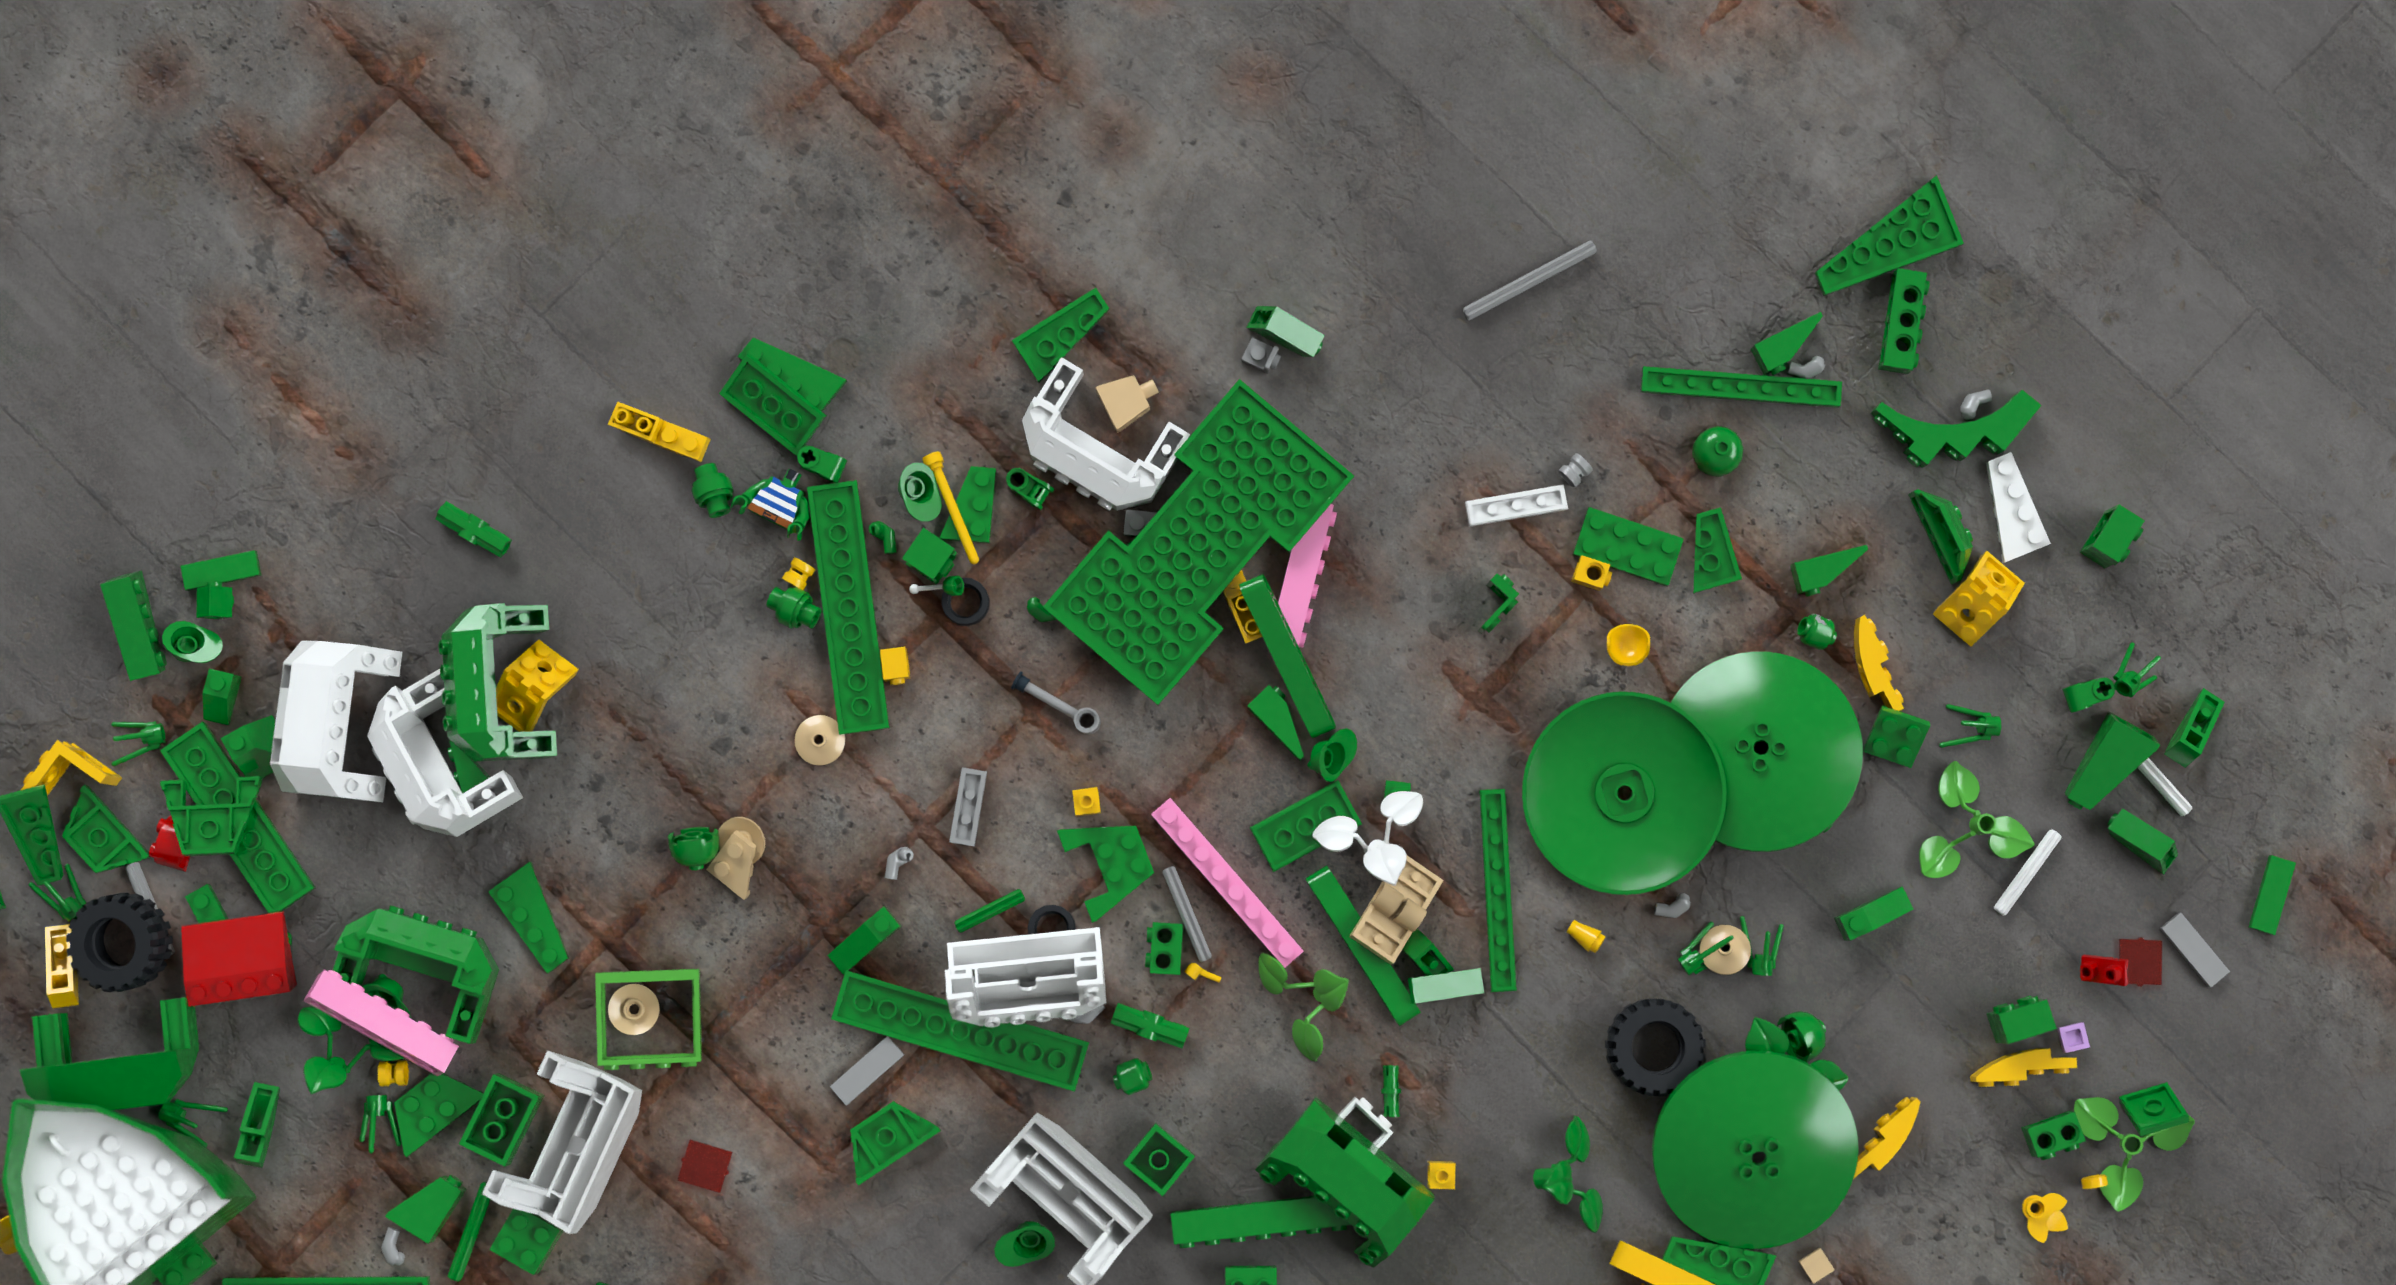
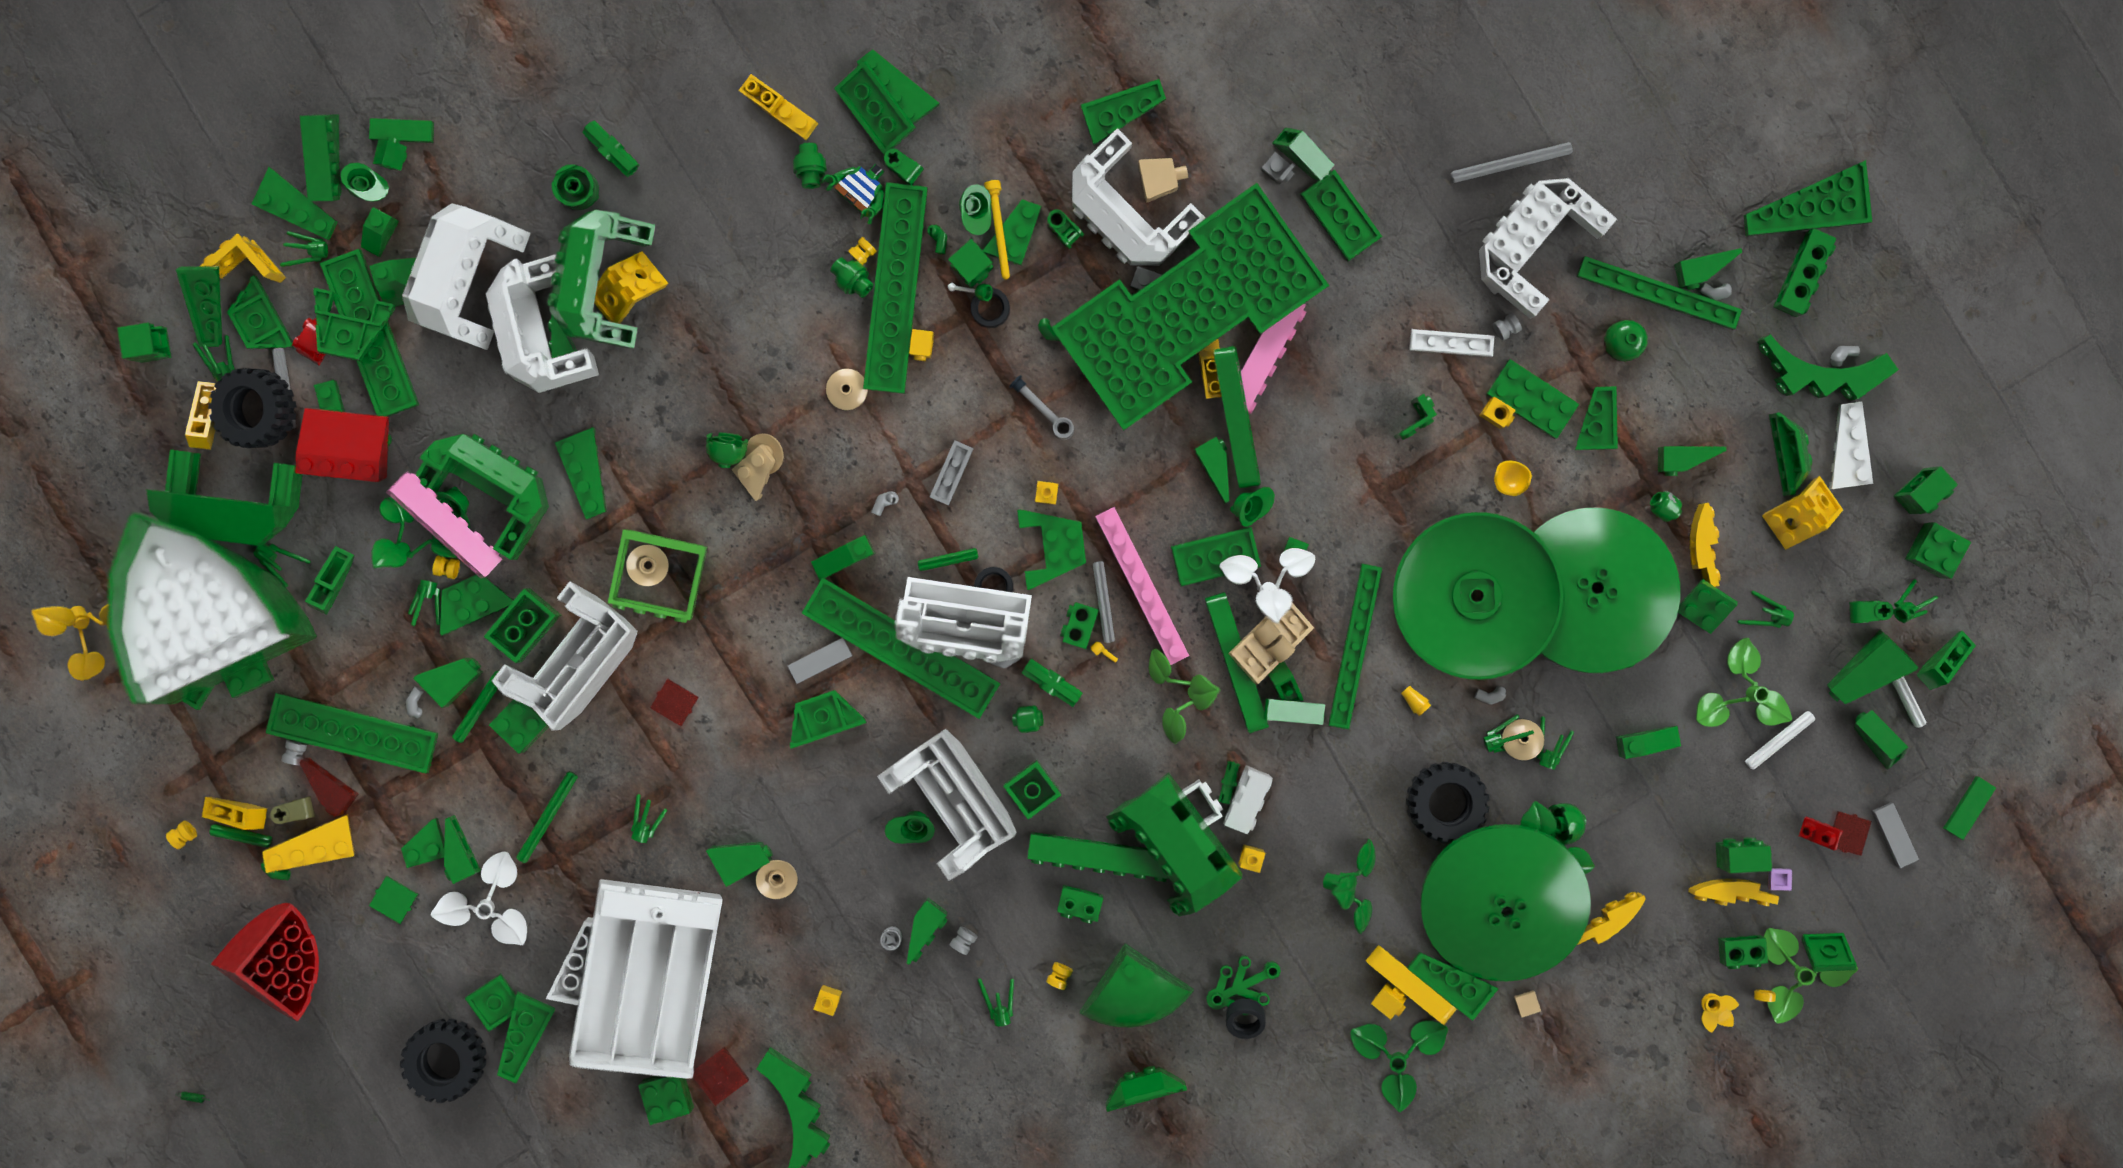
camera: 15 degrees right, 5 degrees up
(105, 689) = (287, 202): none -> green wing
(428, 585) = (563, 187): none -> green brick
(1348, 391) = (1341, 215): none -> green tile
(1418, 1106) = (1247, 800): none -> white wedge
(1566, 353) = (1524, 232): none -> white wedge
(2147, 602) = (1938, 550): none -> green brick

